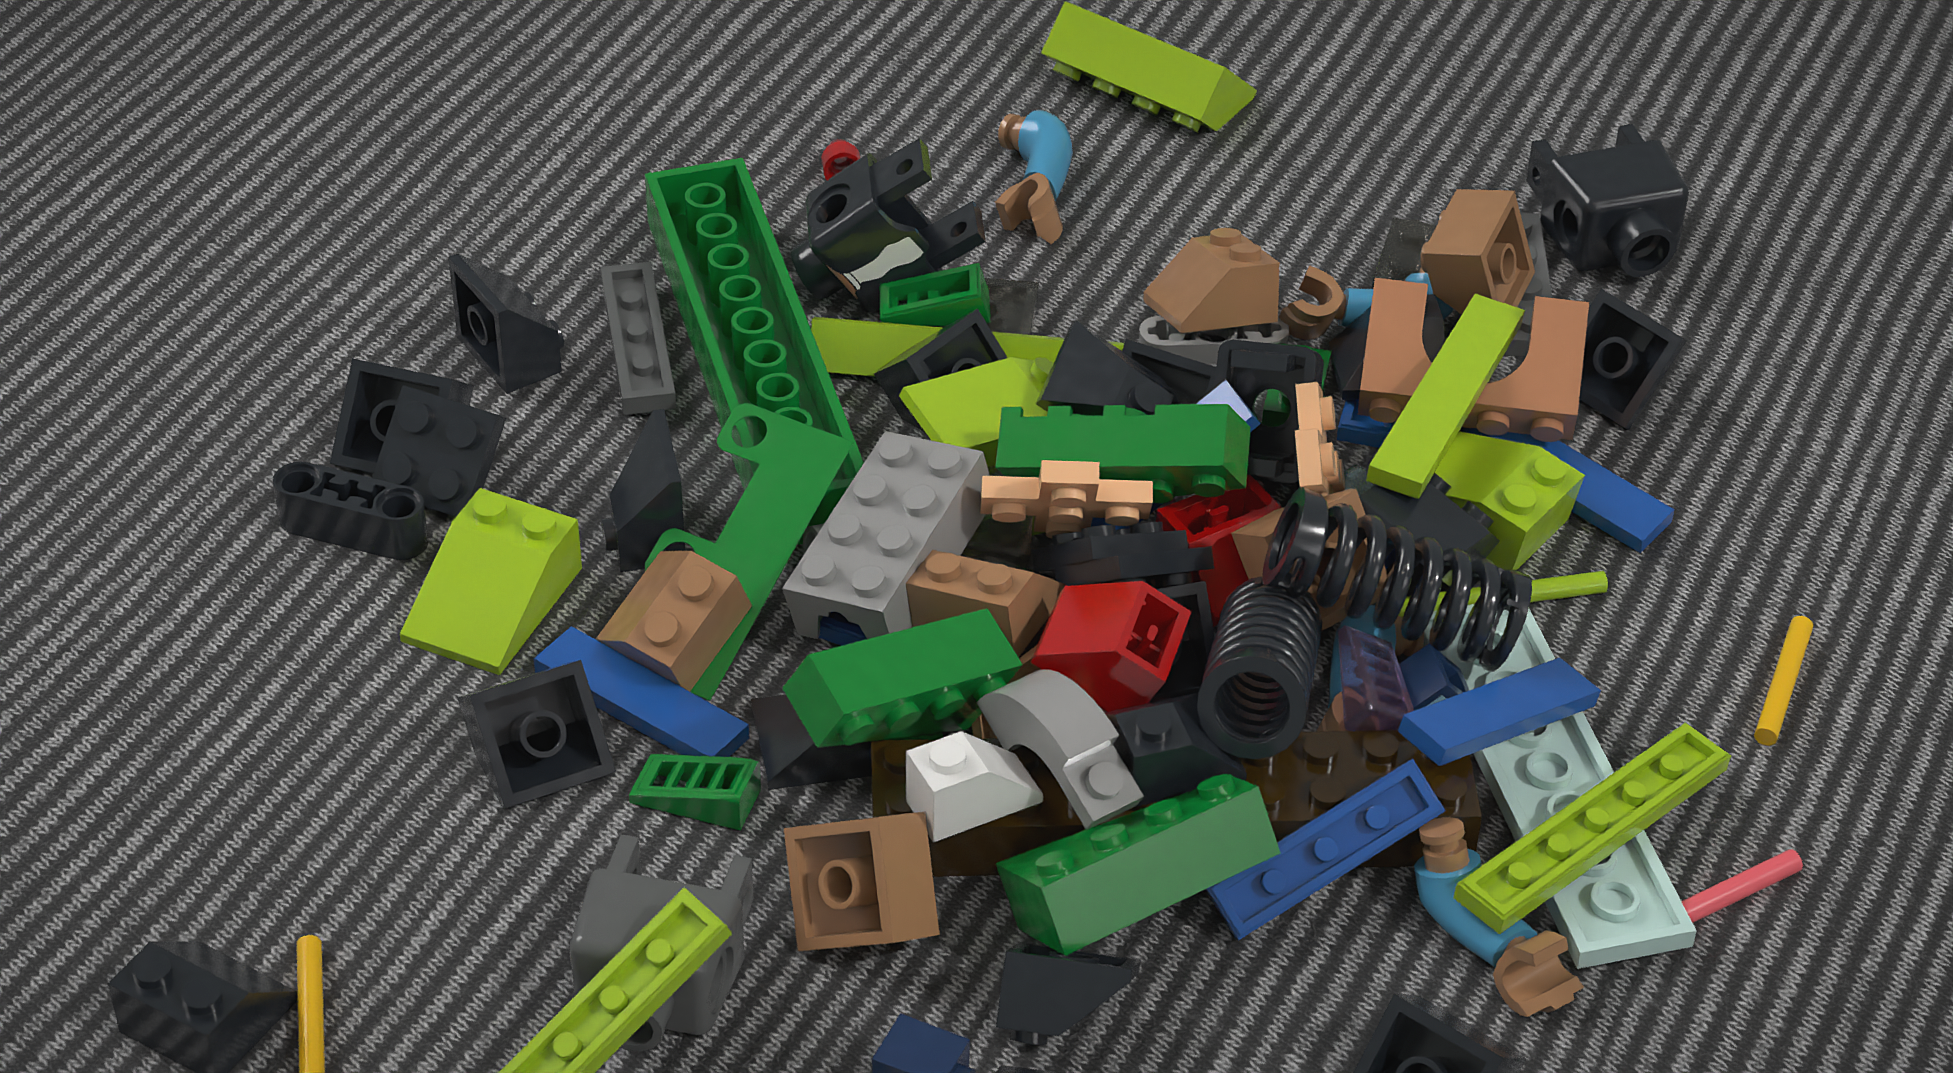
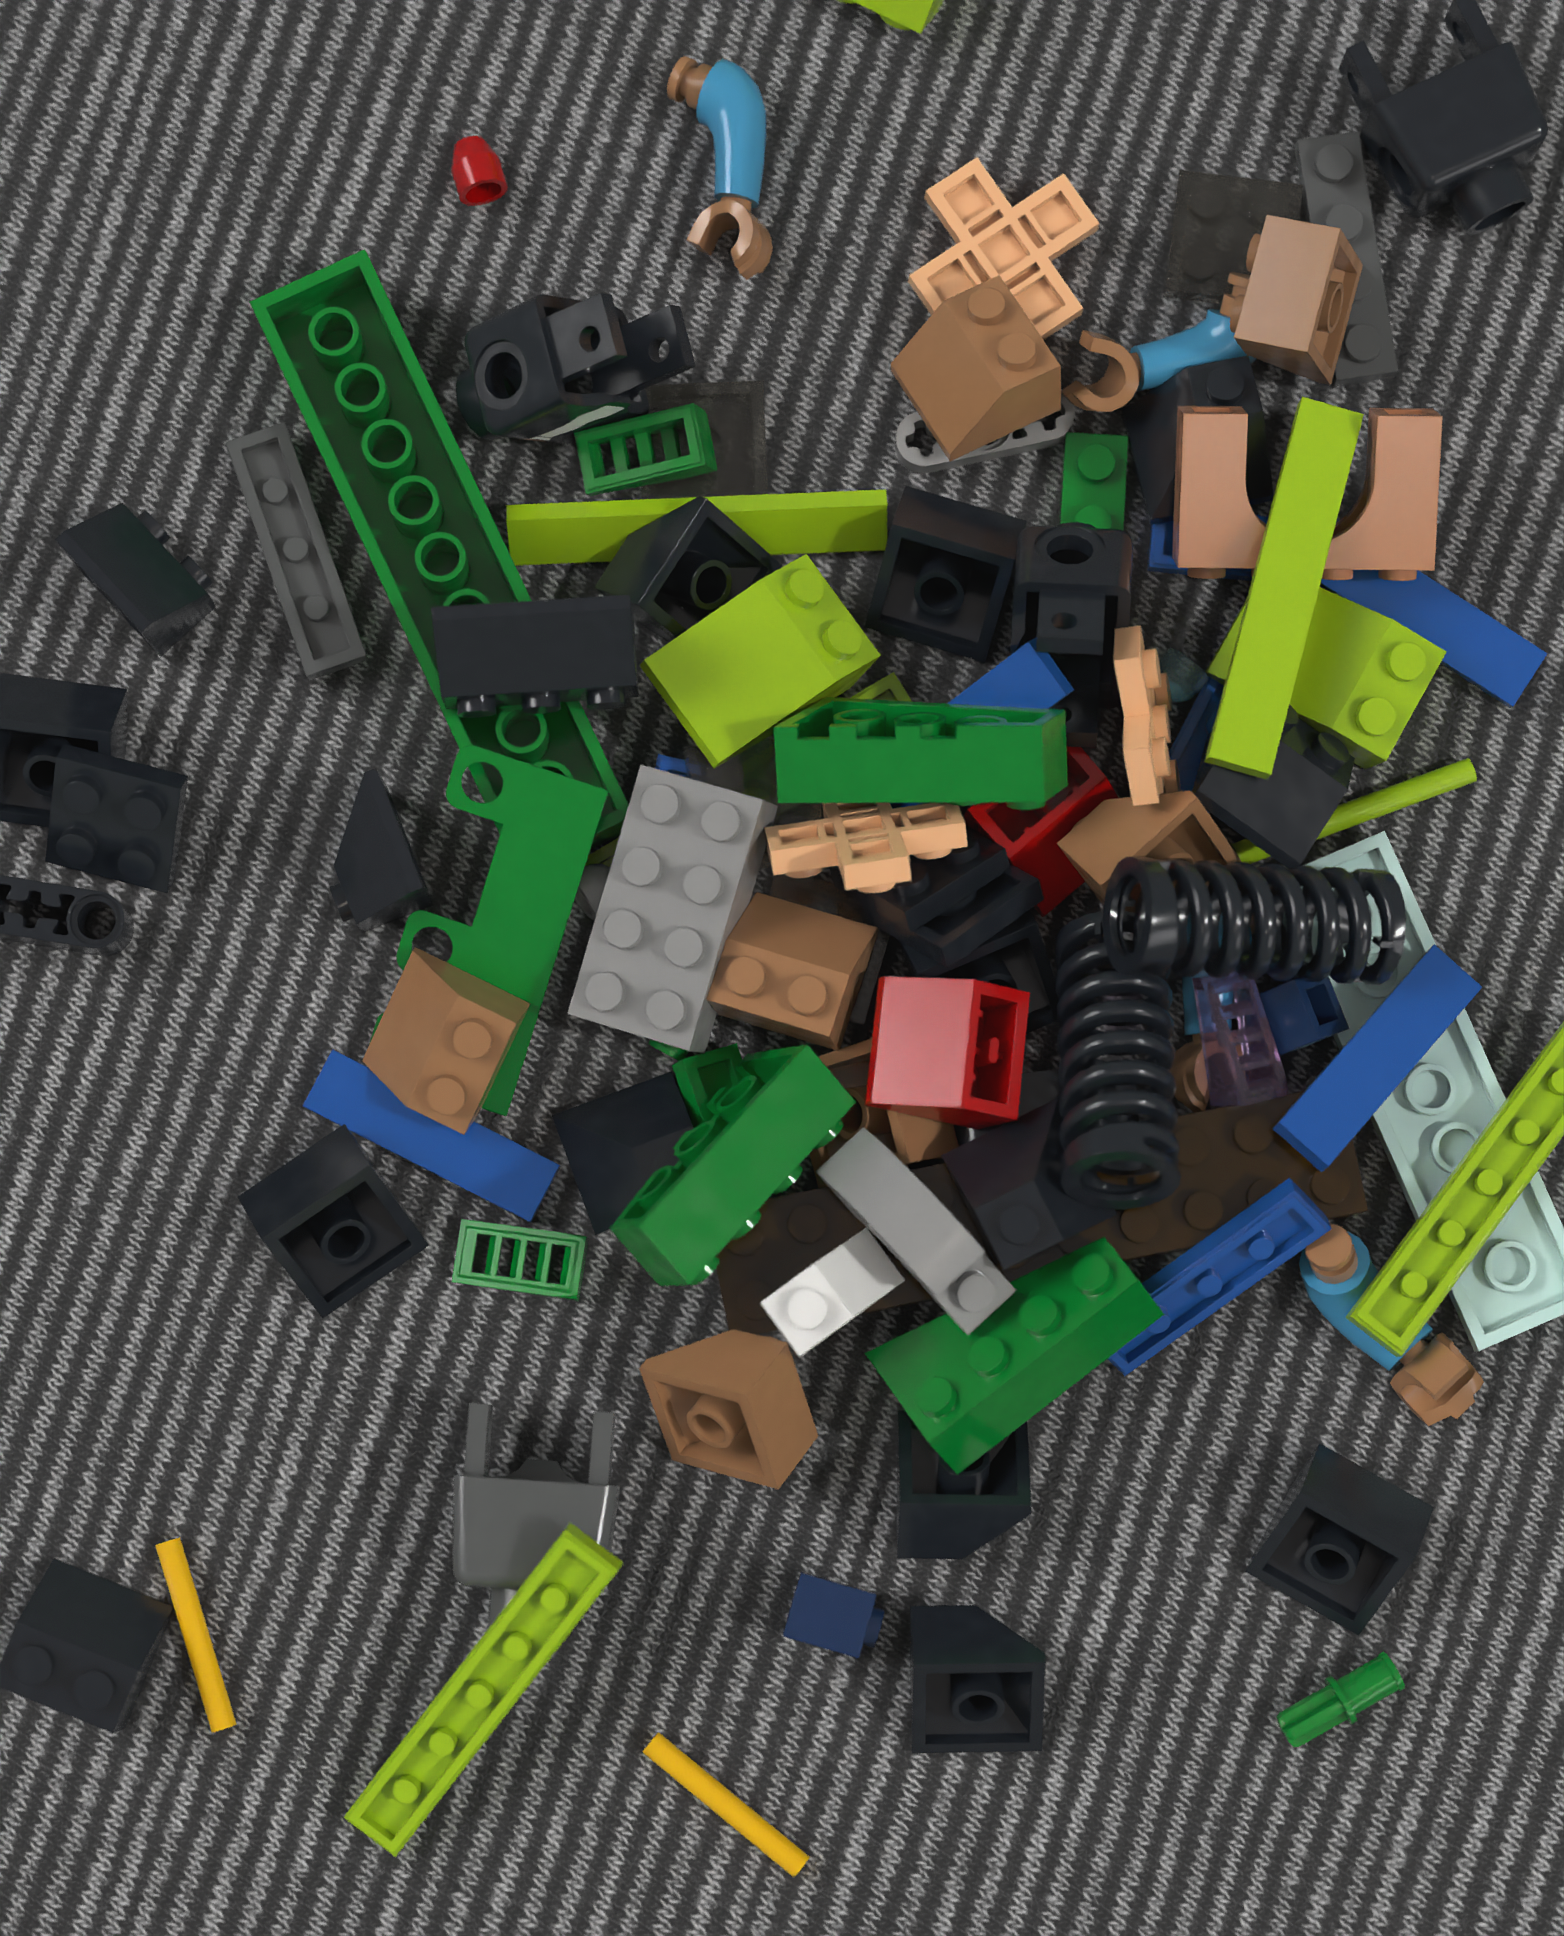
camera: 10 degrees left, 40 degrees up
(493, 581) = (227, 1002): lime slope -> none
(816, 346) = (536, 654): none -> black slope
(1098, 374) = (886, 628): black slope -> none
(1278, 232) = (1006, 242): none -> light nougat plate
(1623, 358) = (1486, 400): black slope -> none

